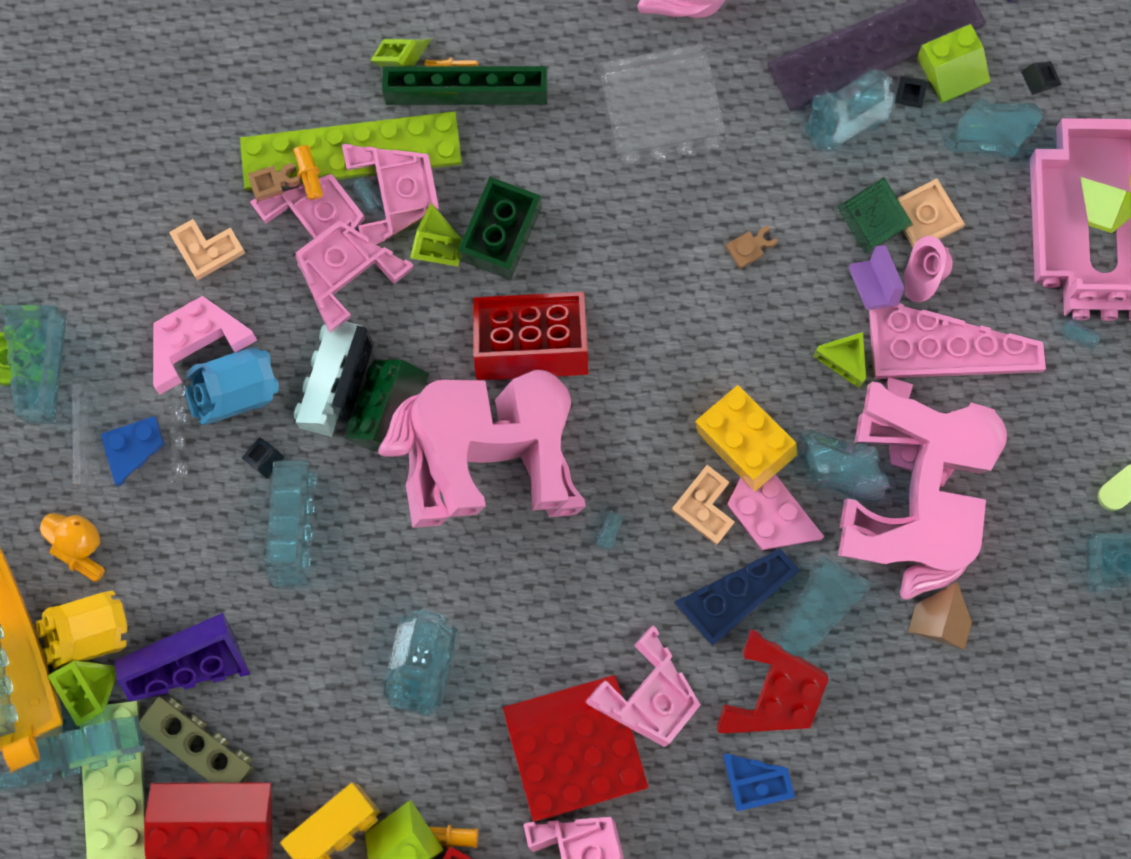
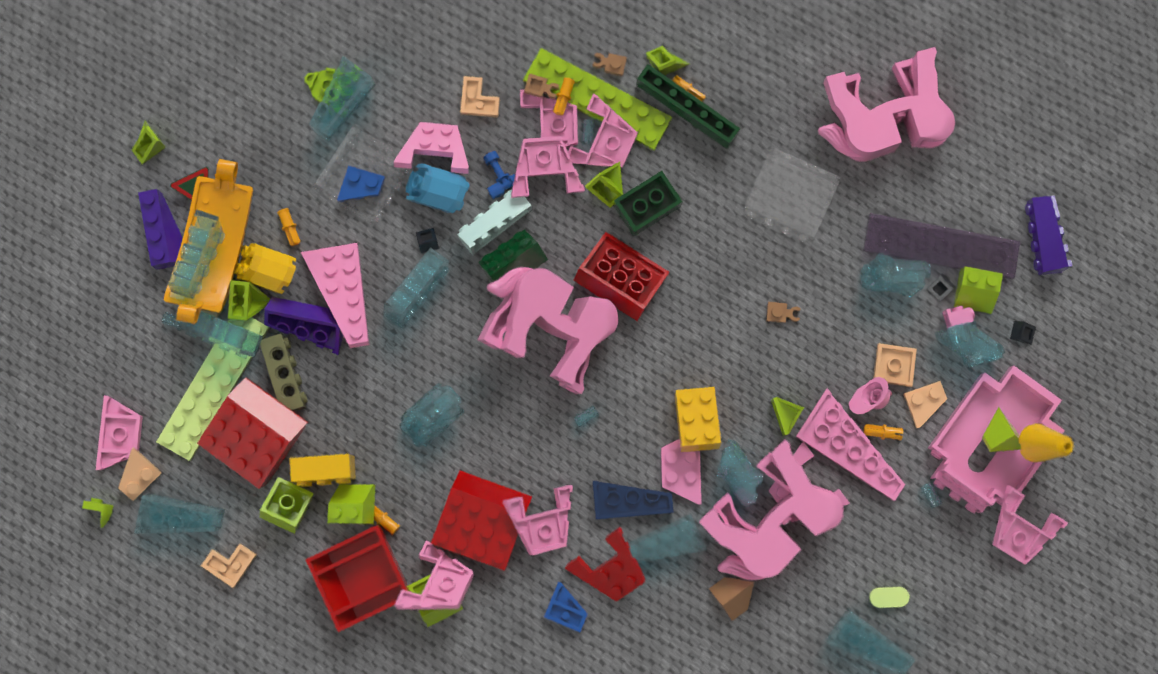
camera: 30 degrees right, 5 degrees up
(71, 534) = (294, 210): light orange cap -> none
(192, 583) = (340, 282): none -> bright pink wing
(307, 321) = (503, 181): none -> blue bar
(341, 99) = (613, 64): none -> medium nougat plate
(352, 373) = (507, 229): black tile -> none
(698, 509) = (643, 438): light nougat plate -> none
(875, 215) = (864, 345): clear green tile -> none
(877, 280) = (837, 383): medium lavender panel -> none
(955, 108) = (958, 316): none -> bright pink brick
(971, 300) = (883, 431): none -> light orange axle
(992, 233) = (924, 402): none -> light nougat wing

